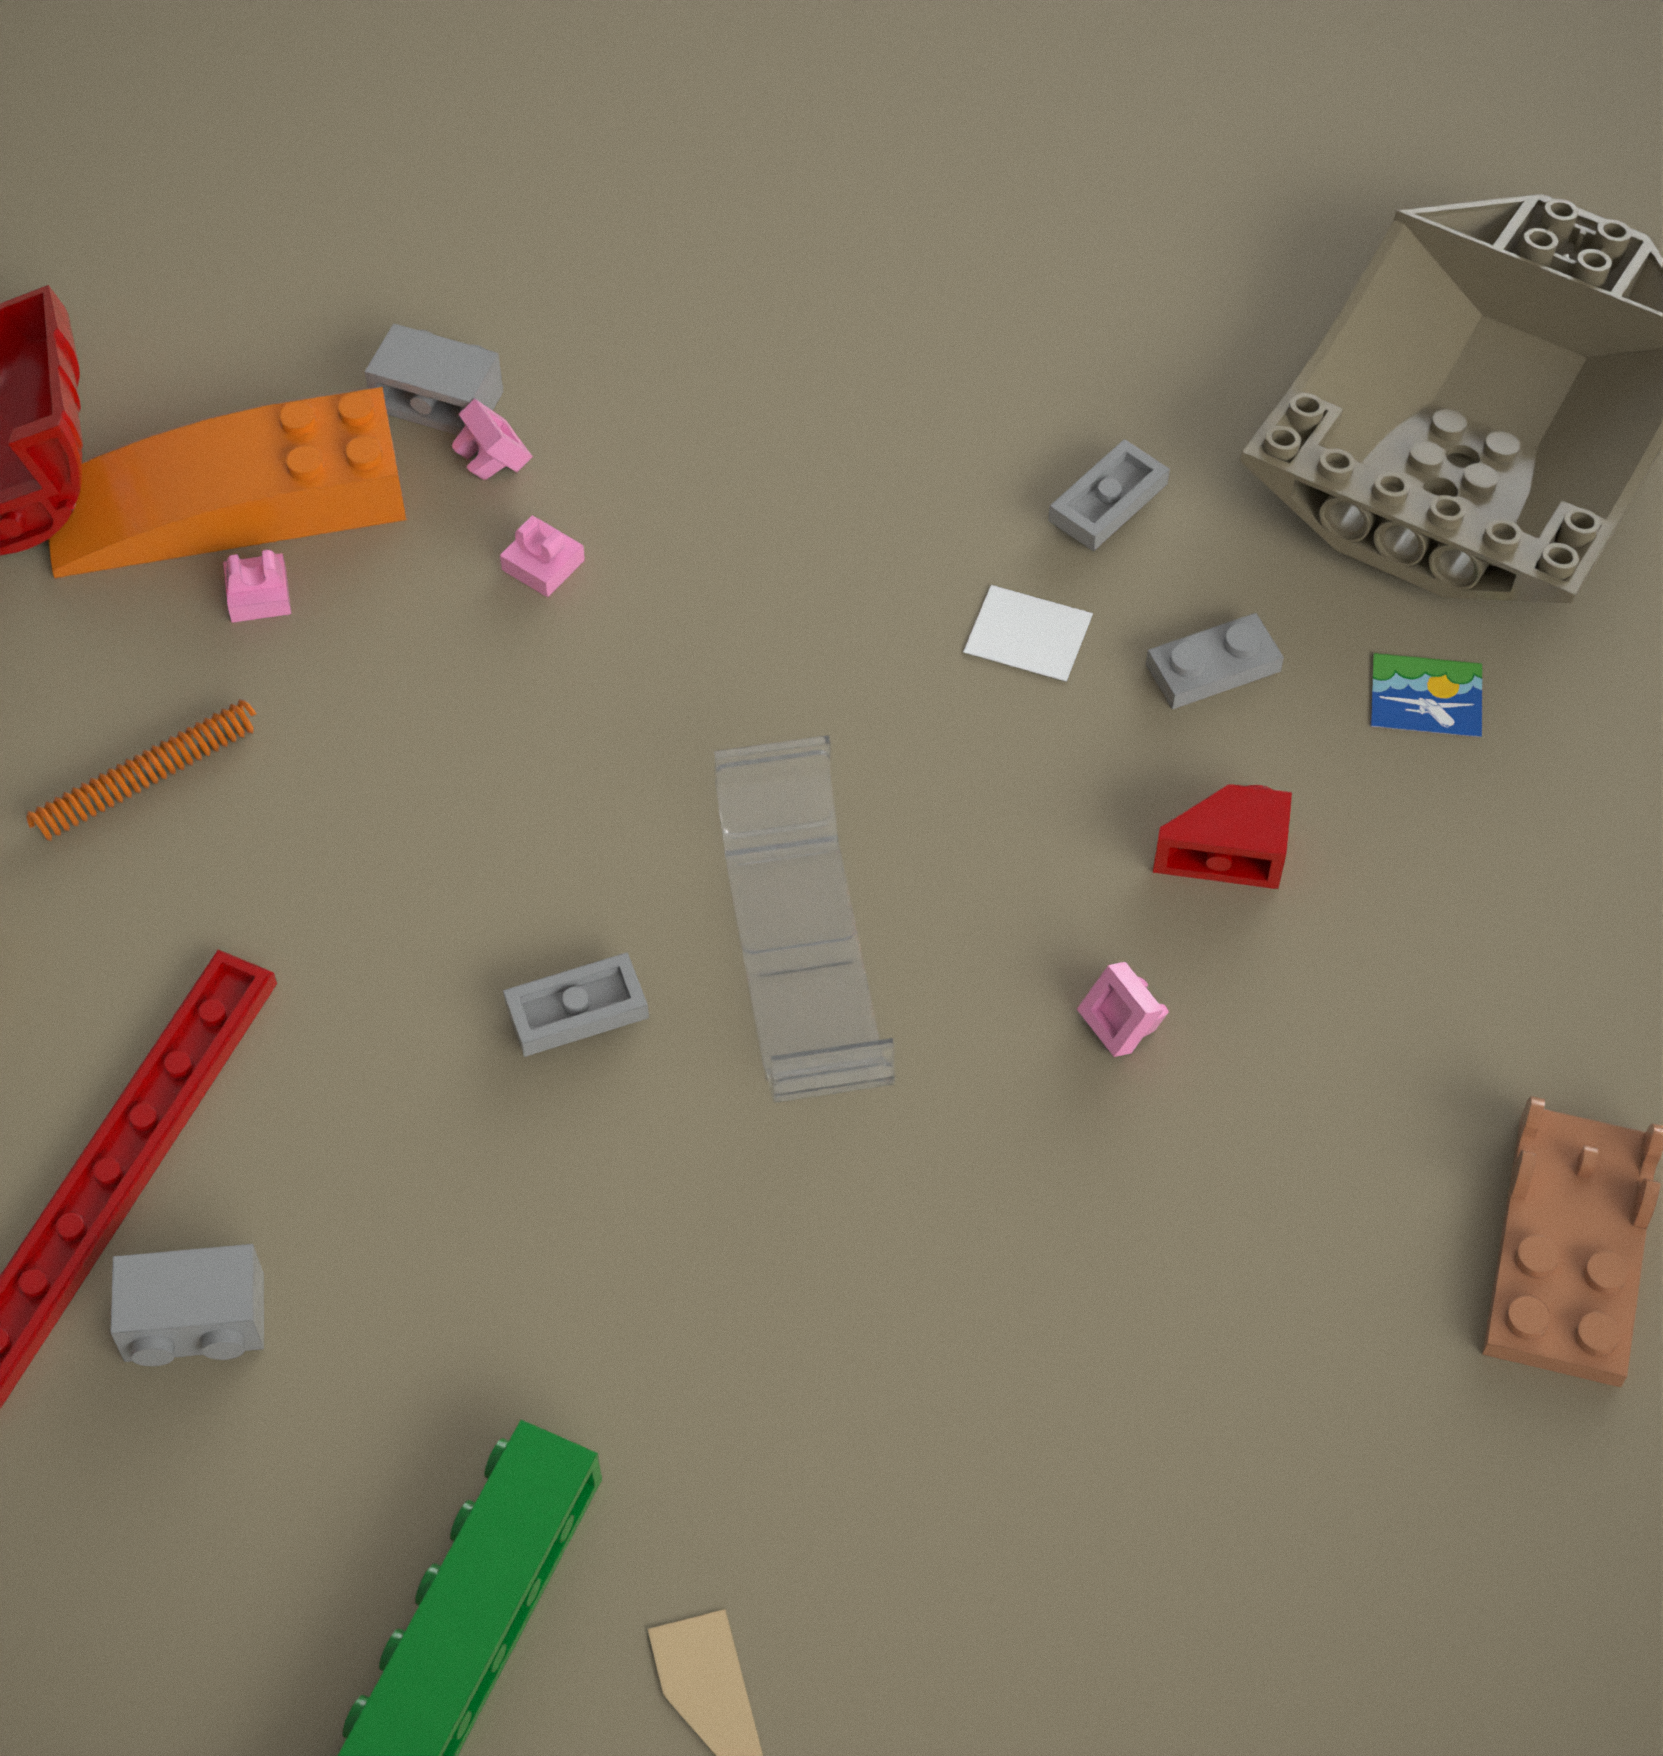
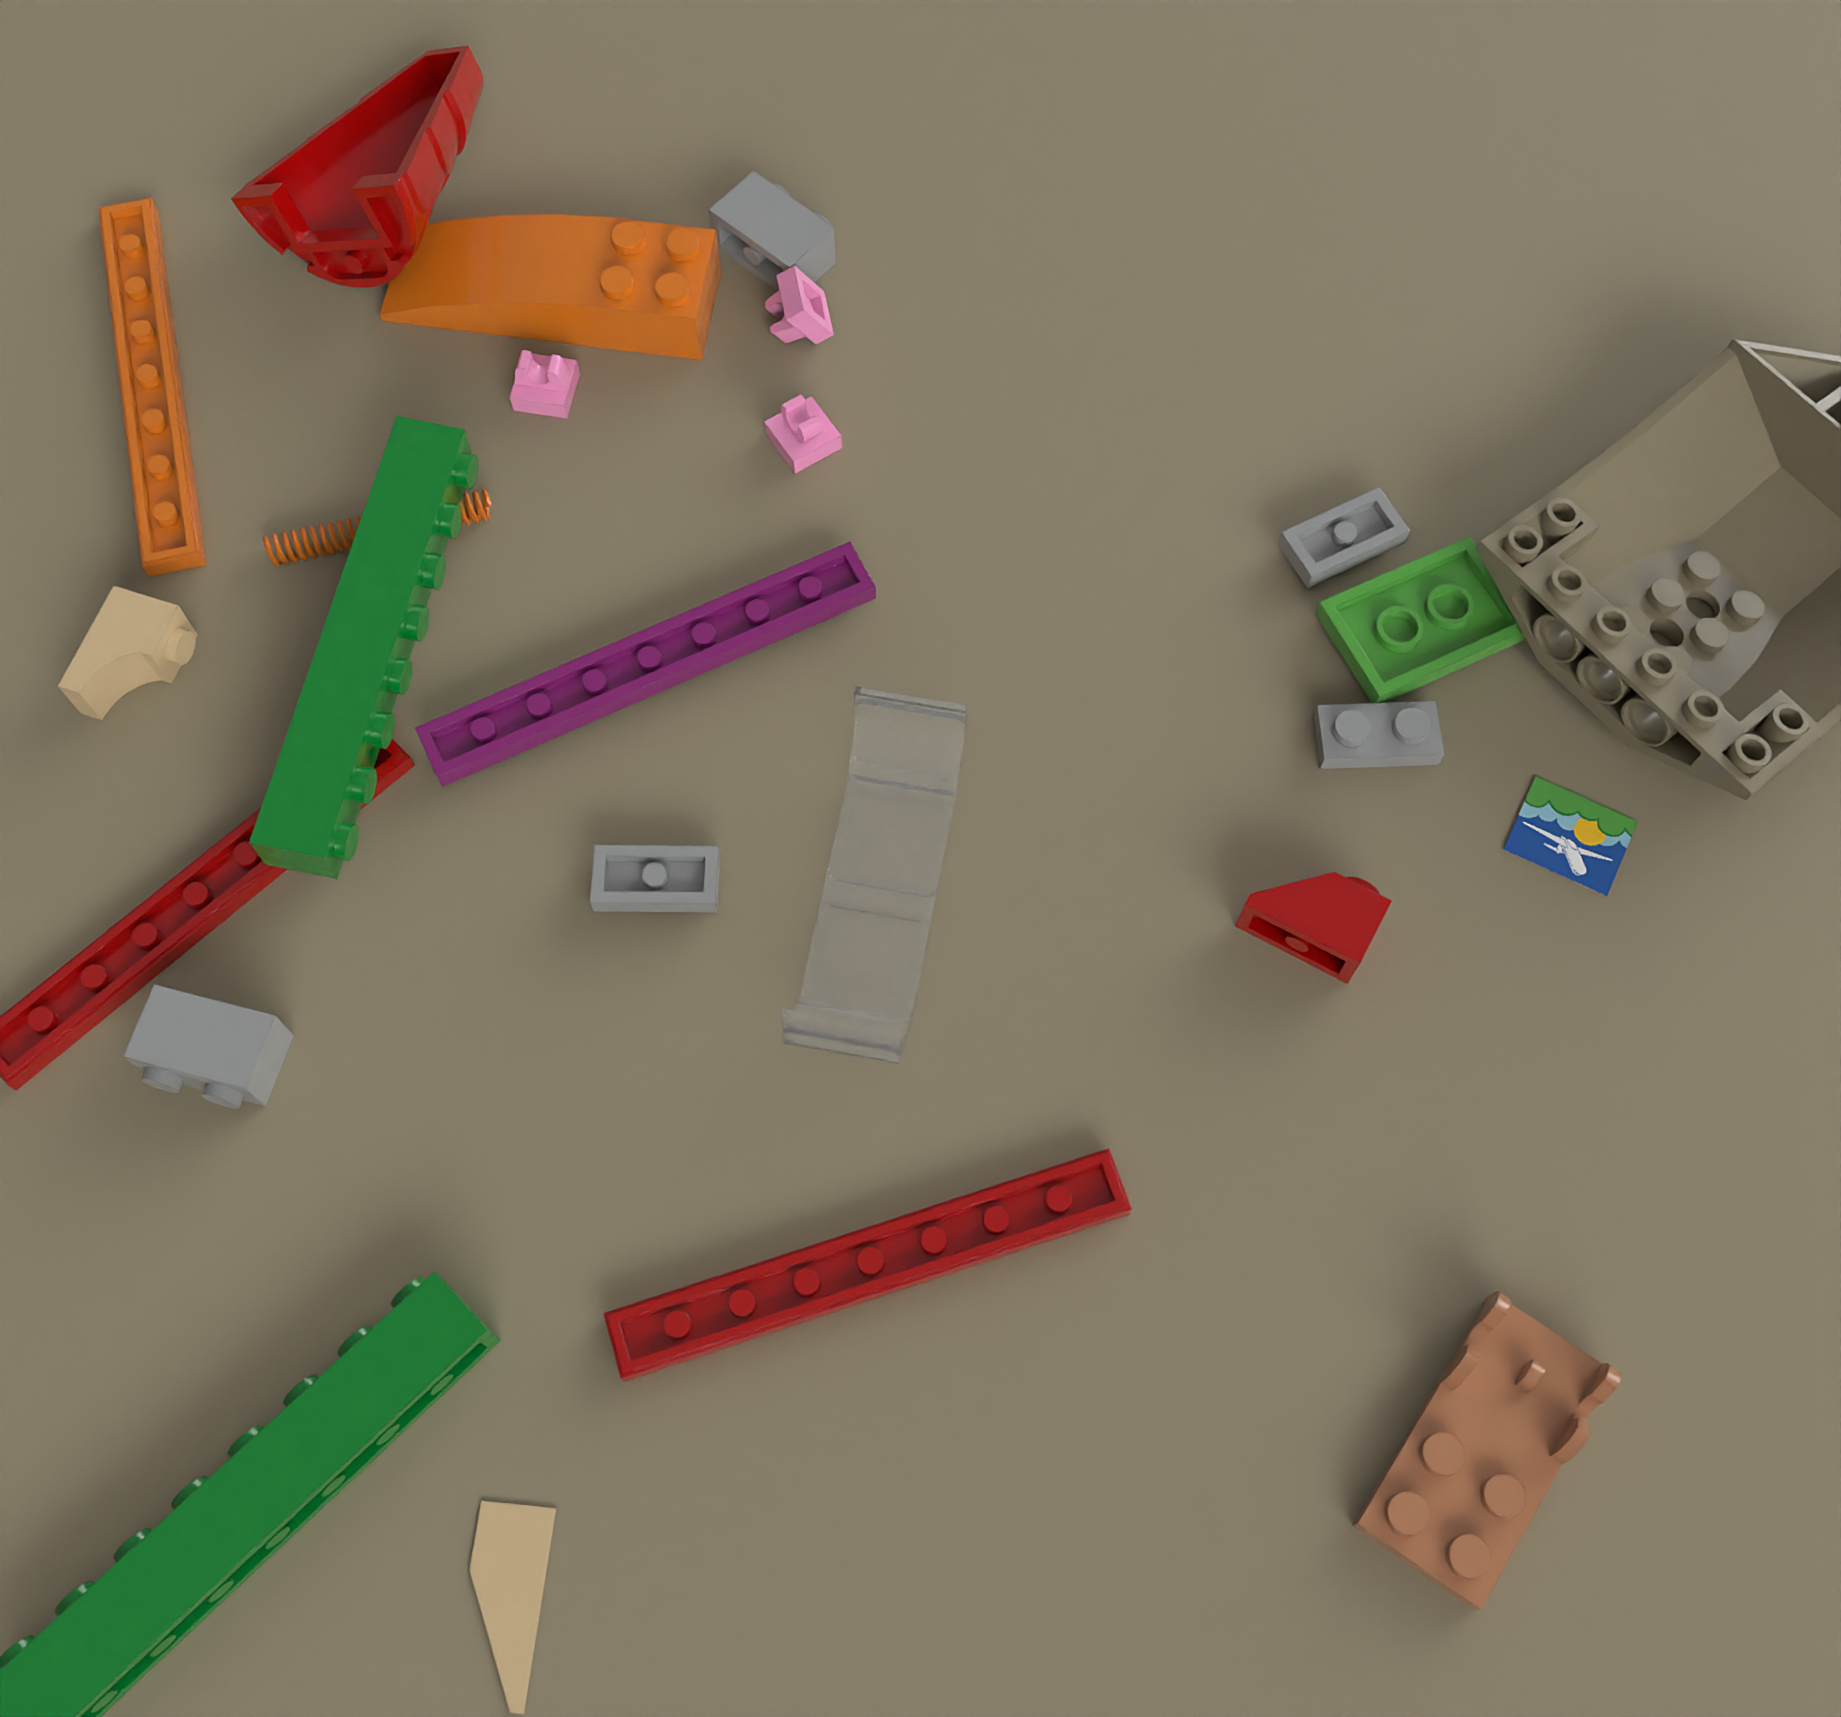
camera: 20 degrees right, 10 degrees up
(193, 883) = (365, 651): none -> green brick
(475, 815) = (645, 663): none -> magenta plate
(929, 1287) = (865, 1264): none -> red tile
(1028, 633) = (1215, 649): white sticker -> none
(1121, 1009) = (1146, 1058): bright pink tile -> none
(1212, 547) = (1419, 621): none -> bright green plate

